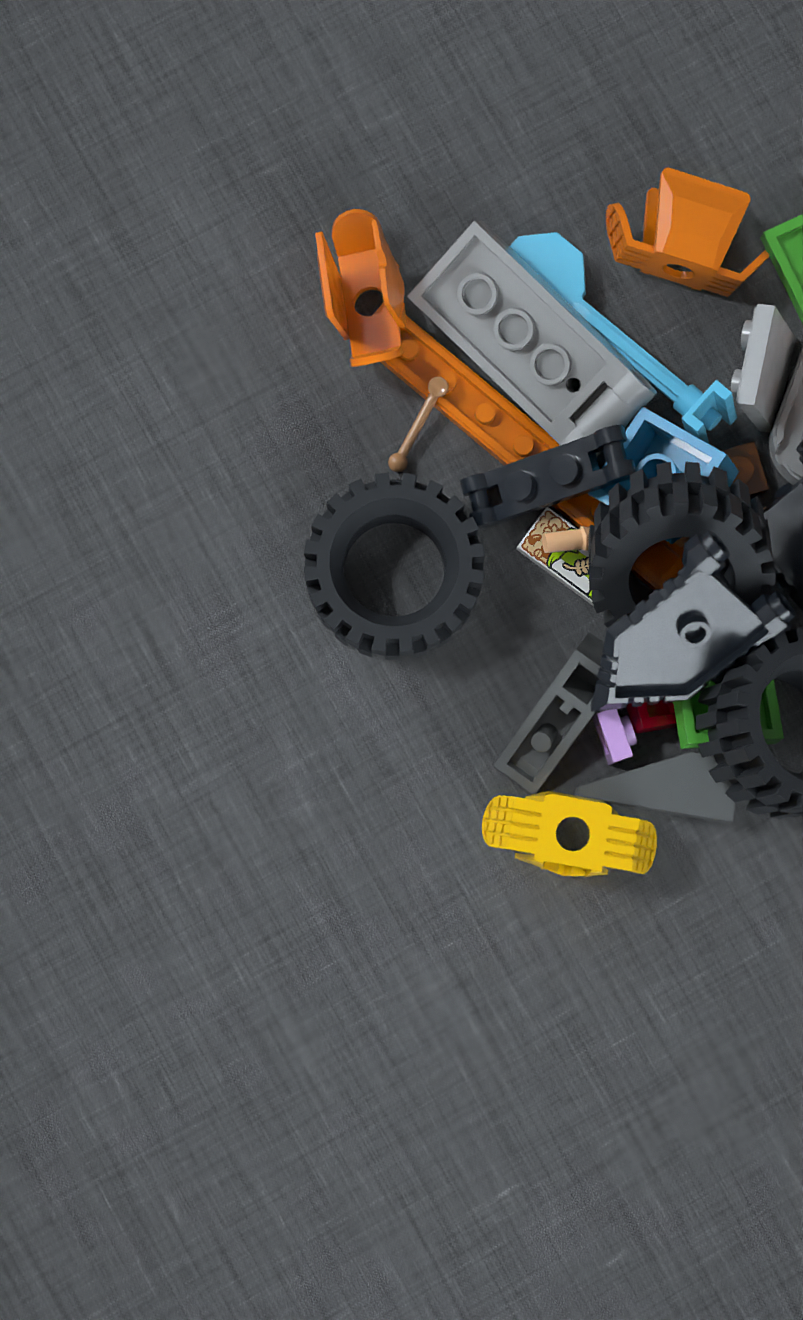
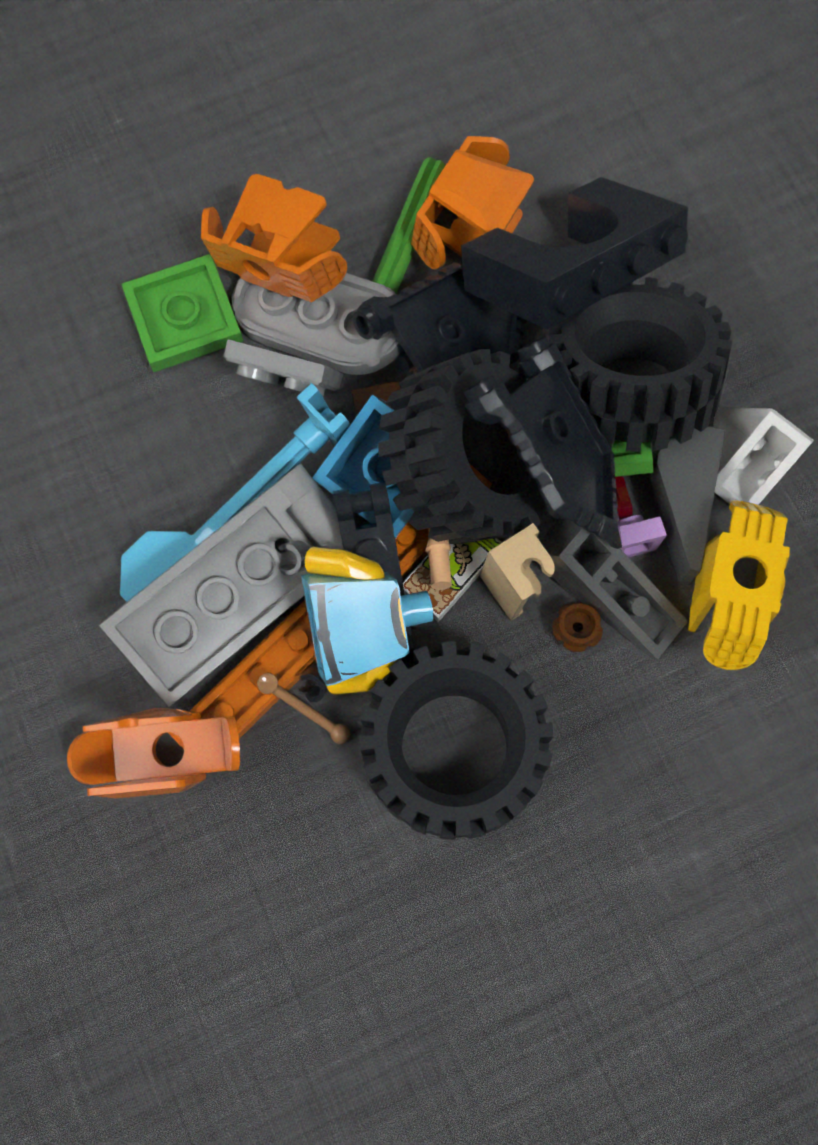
camera: 80 degrees left, 10 degrees down
(502, 456) = (353, 618): none -> medium azure torso
(532, 680) = (577, 613): none -> reddish brown plate
(568, 609) = (508, 570): none -> tan hinge
(687, 226) = (134, 430): orange piece -> none
(711, 855) = (755, 452): none -> white slope

